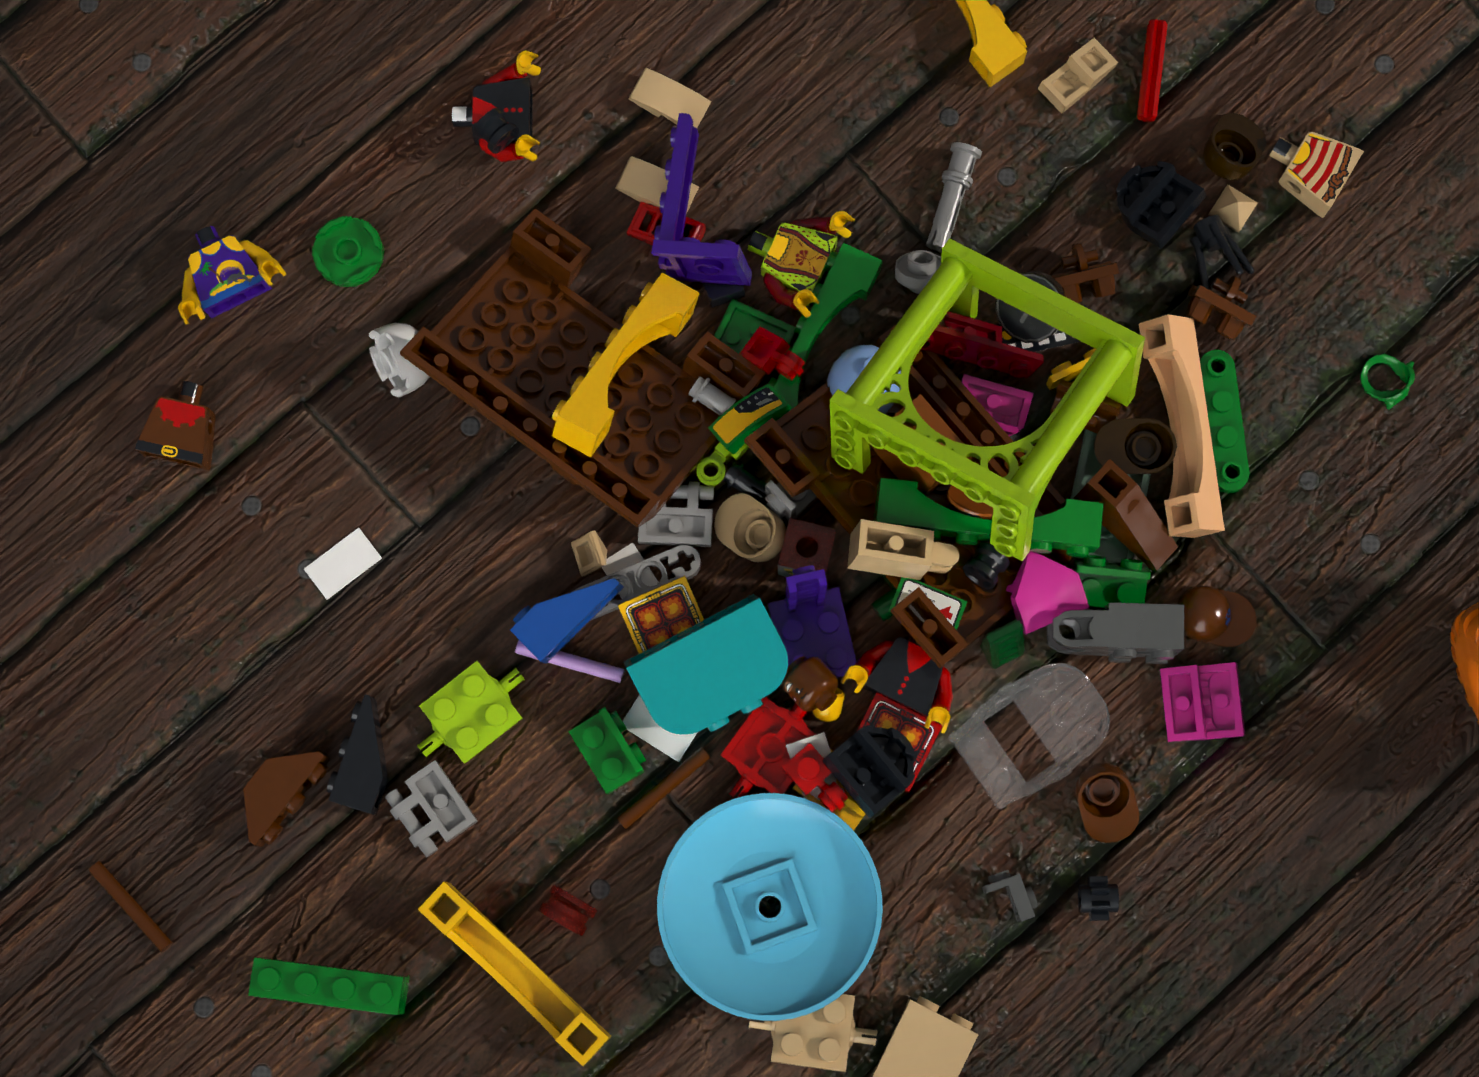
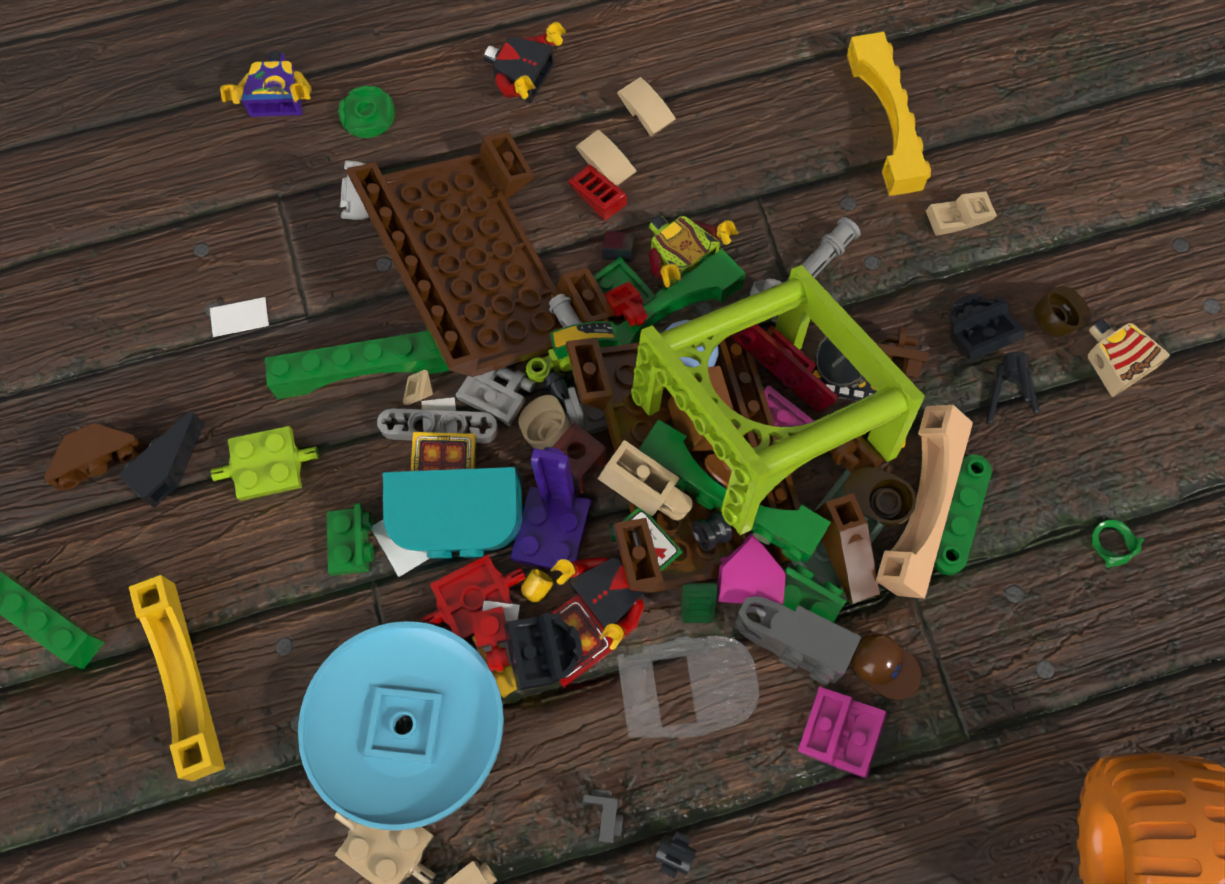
camera: 25 degrees right, 10 degrees down
(180, 429) = (180, 174): reddish brown torso -> none
(441, 803) = (203, 520): light grey plate -> none
(493, 568) = (308, 370): none -> green arch
(496, 130) = (507, 64): black wheel -> none
(557, 620) = (362, 422): blue slope -> none
(565, 913) = (245, 647): clear red wheel -> none
(578, 664) = (354, 456): lavender bar -> none
(661, 311) = (455, 269): yellow arch -> none
(663, 788) = (374, 590): reddish brown bar -> none
(685, 256) = (605, 210): dark purple bracket -> none
(811, 684) = (525, 559): reddish brown head -> none
(1107, 803) = (721, 776): reddish brown cap -> none
(1152, 70) = (1021, 233): red axle -> none
(1233, 208) = (1043, 358): tan slope -> none
(1233, 317) = (1007, 436): reddish brown hips -> none

